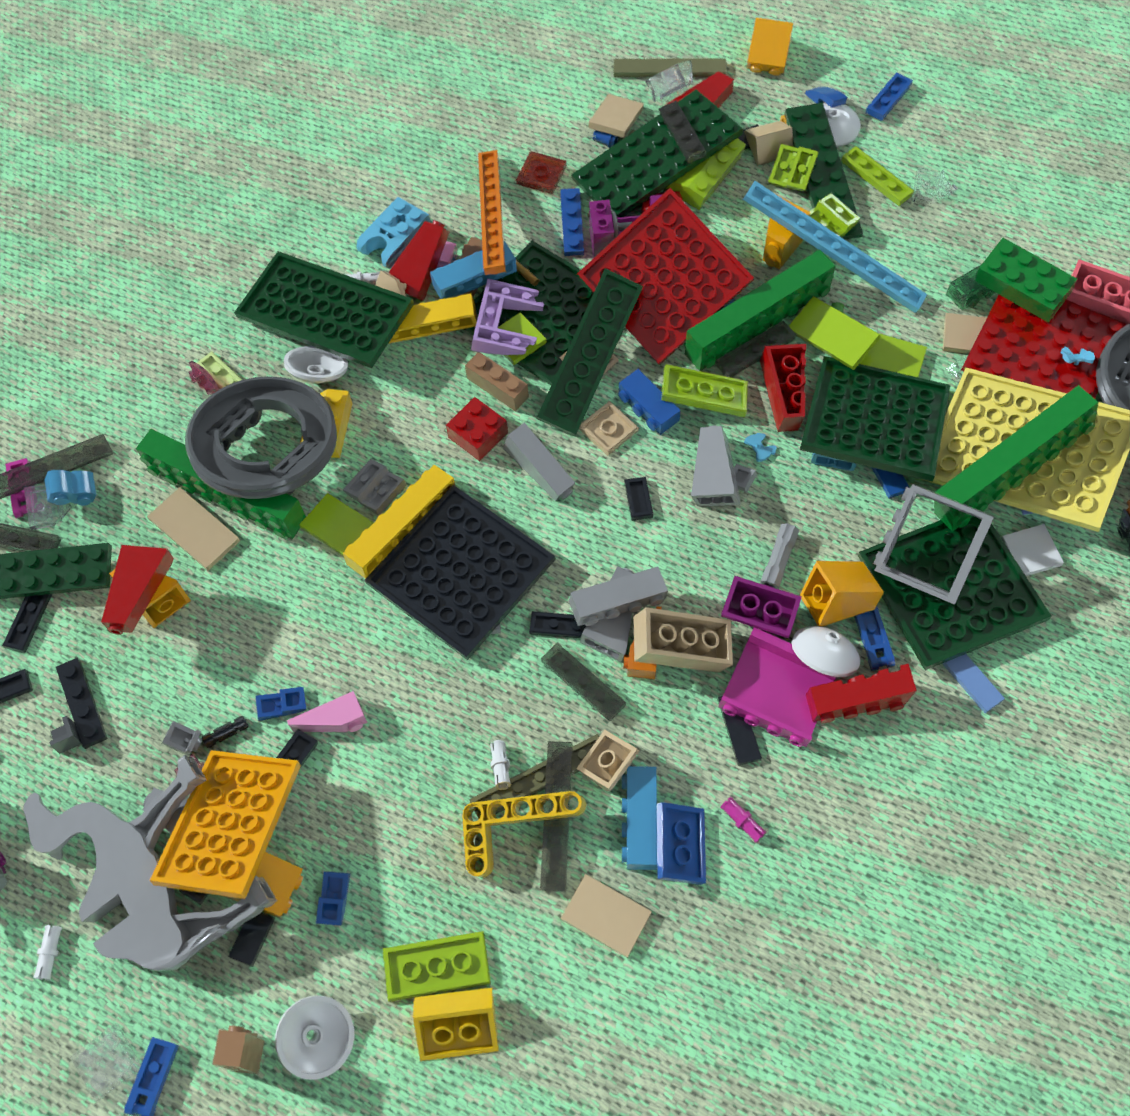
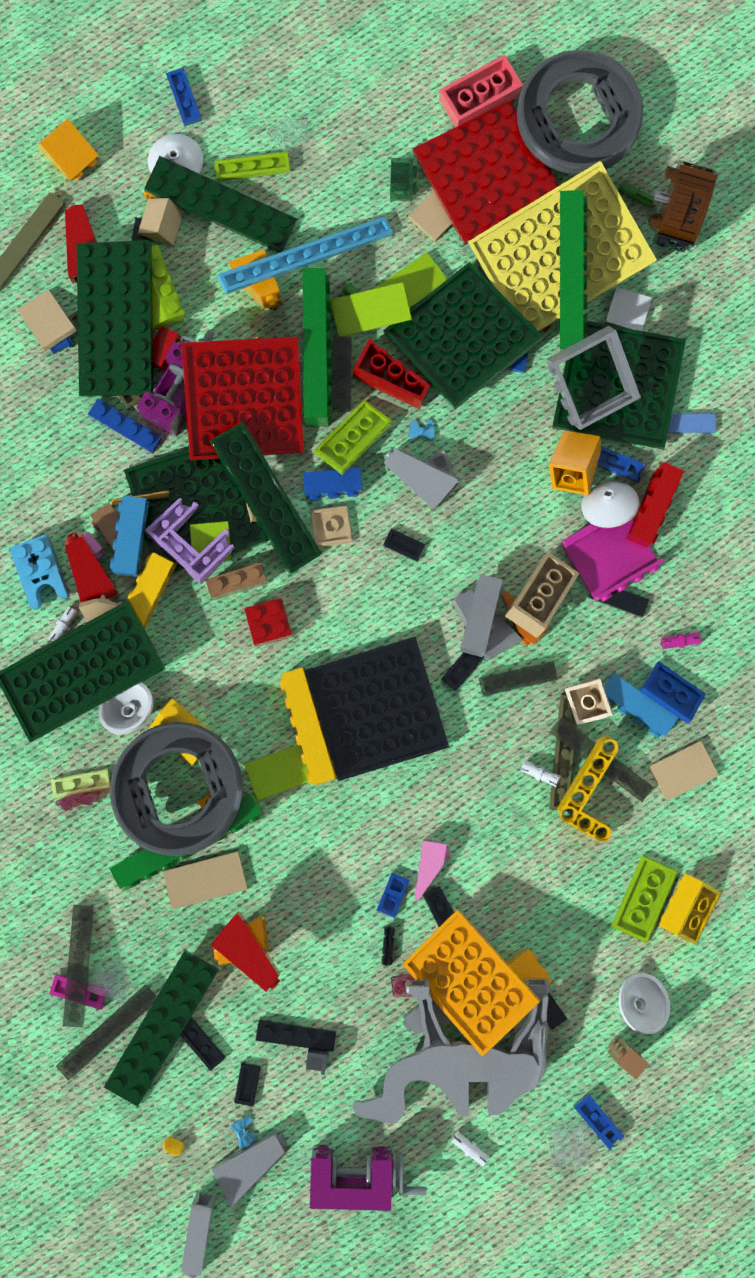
camera: 60 degrees left, 20 degrees up
(69, 487) = (108, 955): dark azure brick -> none
(182, 738) = (375, 978): light grey bracket -> none
(333, 898) = (556, 939): blue slope -> none
(375, 487) = (262, 726): light grey slope -> none
(491, 213) = (83, 486): orange plate -> none
(538, 462) = (329, 597): light grey slope -> none
(541, 172) = (59, 417): clear red plate -> none
(670, 81) = (47, 253): clear slope -> none
(682, 132) = (116, 287): clear smoke plate -> none
(761, 606) = (551, 525): magenta slope -> none
(778, 560) = (525, 492): light grey axle -> none
(793, 167) = (203, 224): lime slope -> none
(828, 95) = (149, 143): blue slope -> none
(834, 215) = (271, 233): lime slope -> none
(1025, 279) = (433, 143): green brick -> none
(1084, 356) = (520, 154): medium azure piece -> none

